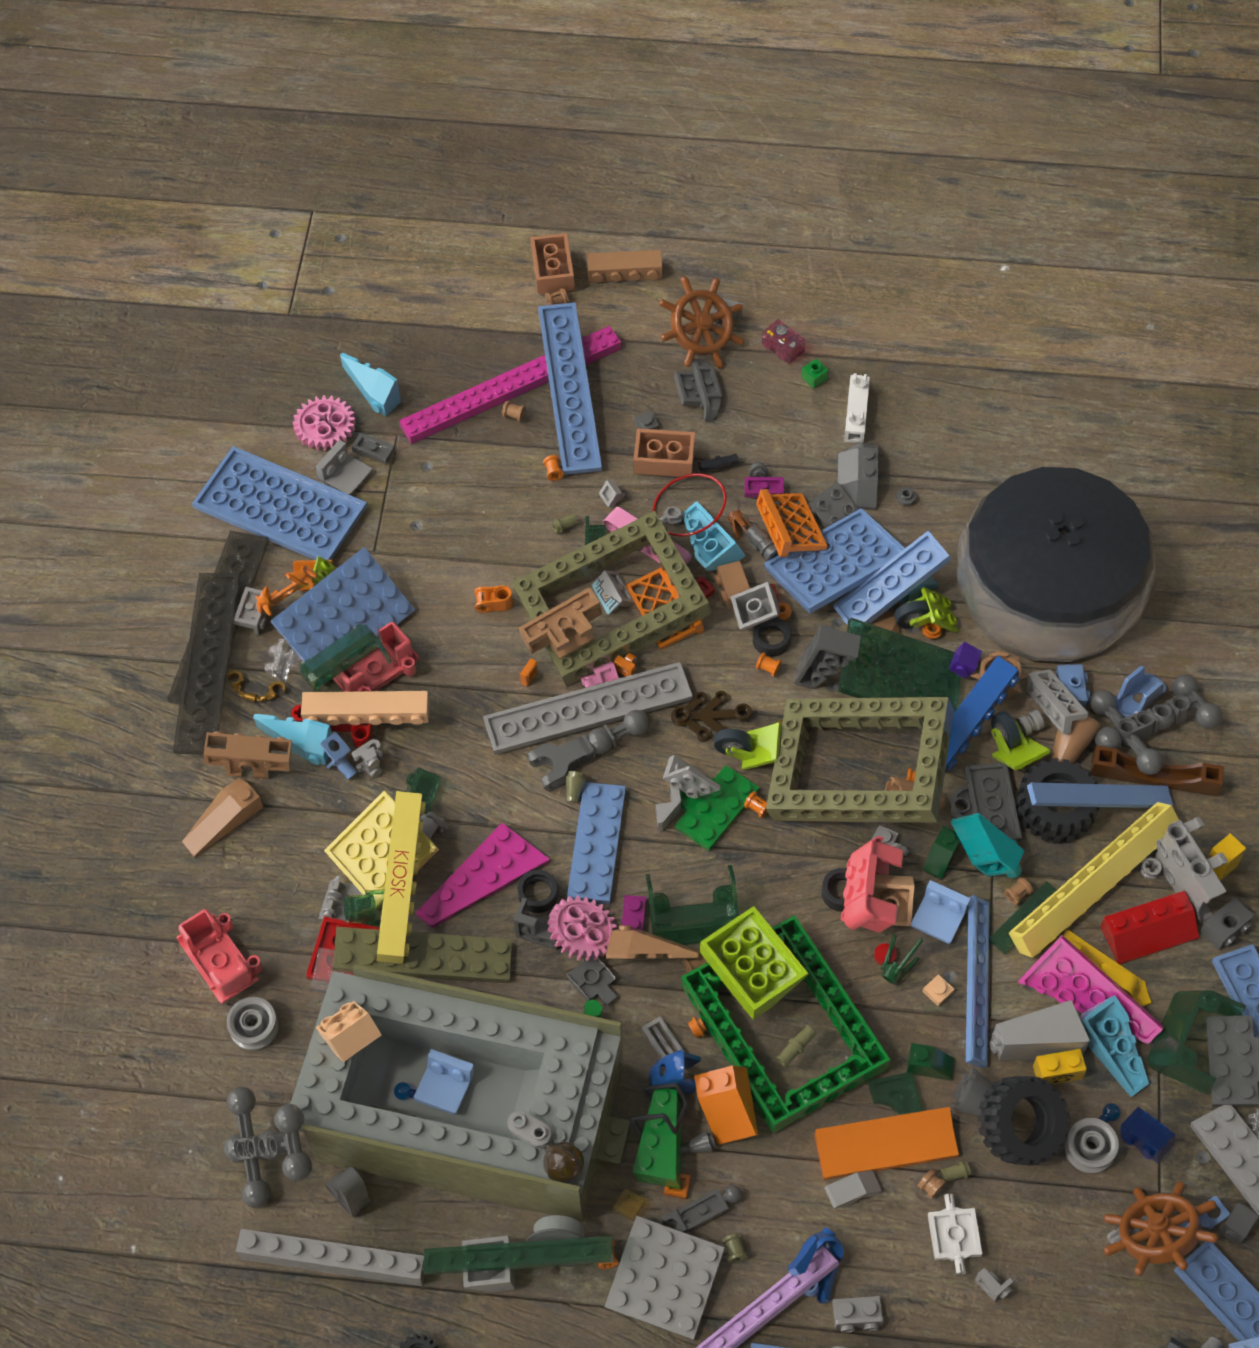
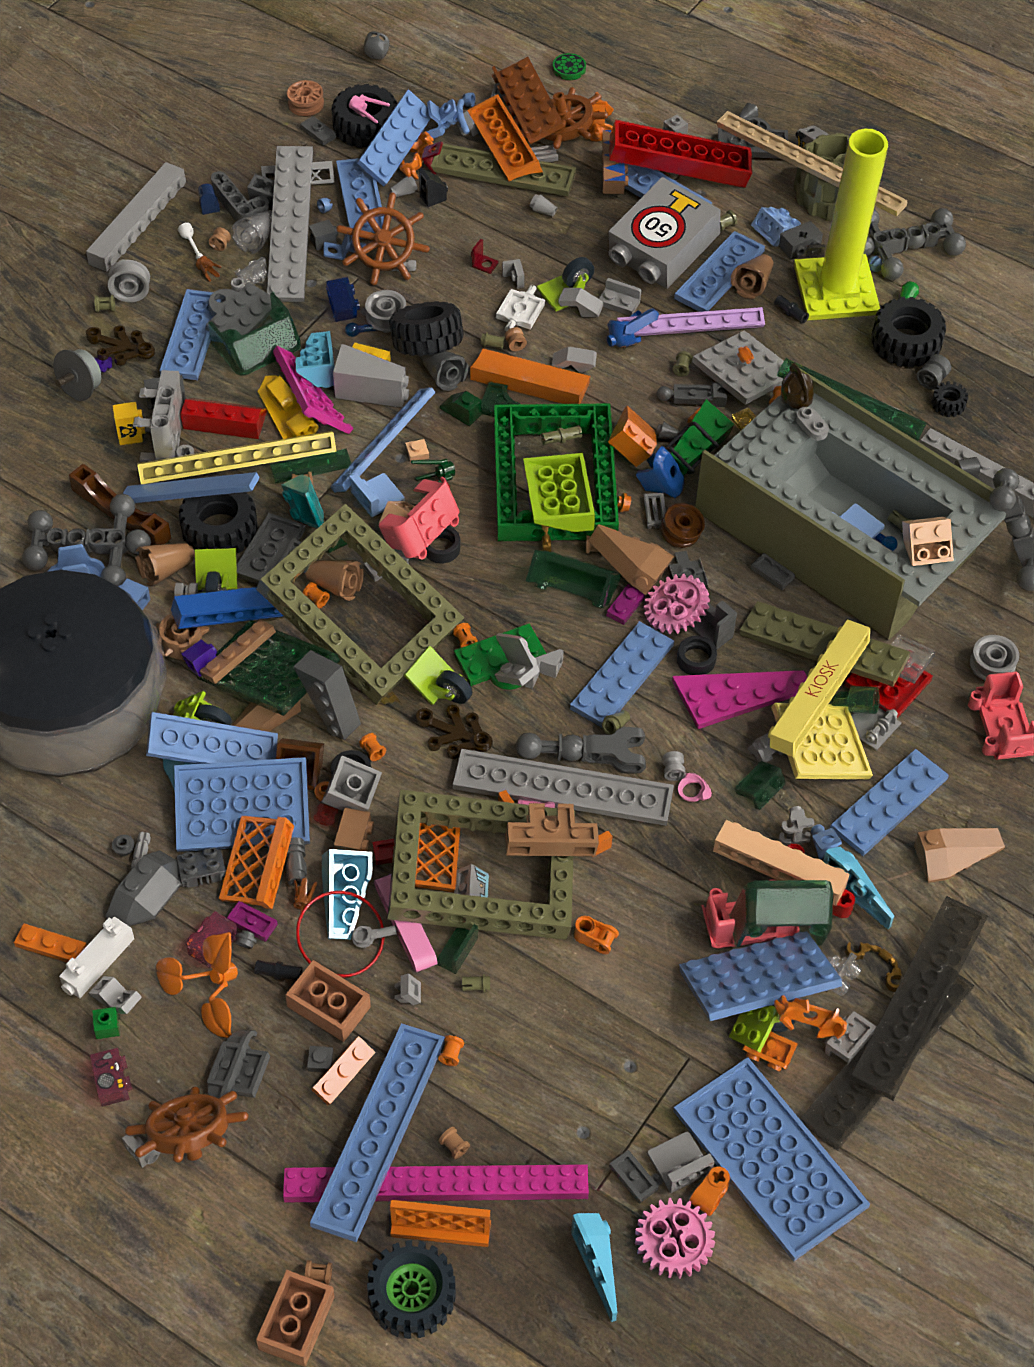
camera: 155 degrees left, 5 degrees down
(247, 751) = (914, 874): medium nougat piece -> none
(299, 835) = (889, 802): none -> medium blue plate
(310, 459) = (709, 1193): none -> orange piece
(480, 774) = (705, 792): none -> bright pink piece
(487, 311) = (409, 1262): none -> black wheel
(495, 358) = (440, 1223): none -> orange fence
(503, 770) = (674, 766): none -> light grey wheel
(593, 1008) = (701, 546): green piece -> none
(623, 420) = (343, 1070): none -> plate
(624, 266) = (212, 1275): medium nougat brick -> none
(628, 1011) = (679, 515): none -> reddish brown wheel
(666, 1272) = (745, 355): none -> orange plate
(757, 436) = (217, 952): none -> orange plant
(783, 458) = (210, 926): none -> clear pink brick
(809, 623) = (299, 749): none -> reddish brown slope
(827, 395) = (113, 994): none -> light grey slope
(888, 498) = (141, 847): none -> light grey axle
(894, 1275) = (587, 304): none -> light grey slope
(899, 407) = (48, 943): none -> orange plate
(925, 1291) = (575, 275): none -> plate
(939, 670) = (237, 651): none -> medium nougat plate
(1049, 700) = (162, 579): light grey fence -> none
(1050, 1286) = (478, 258): none -> dark red bracket

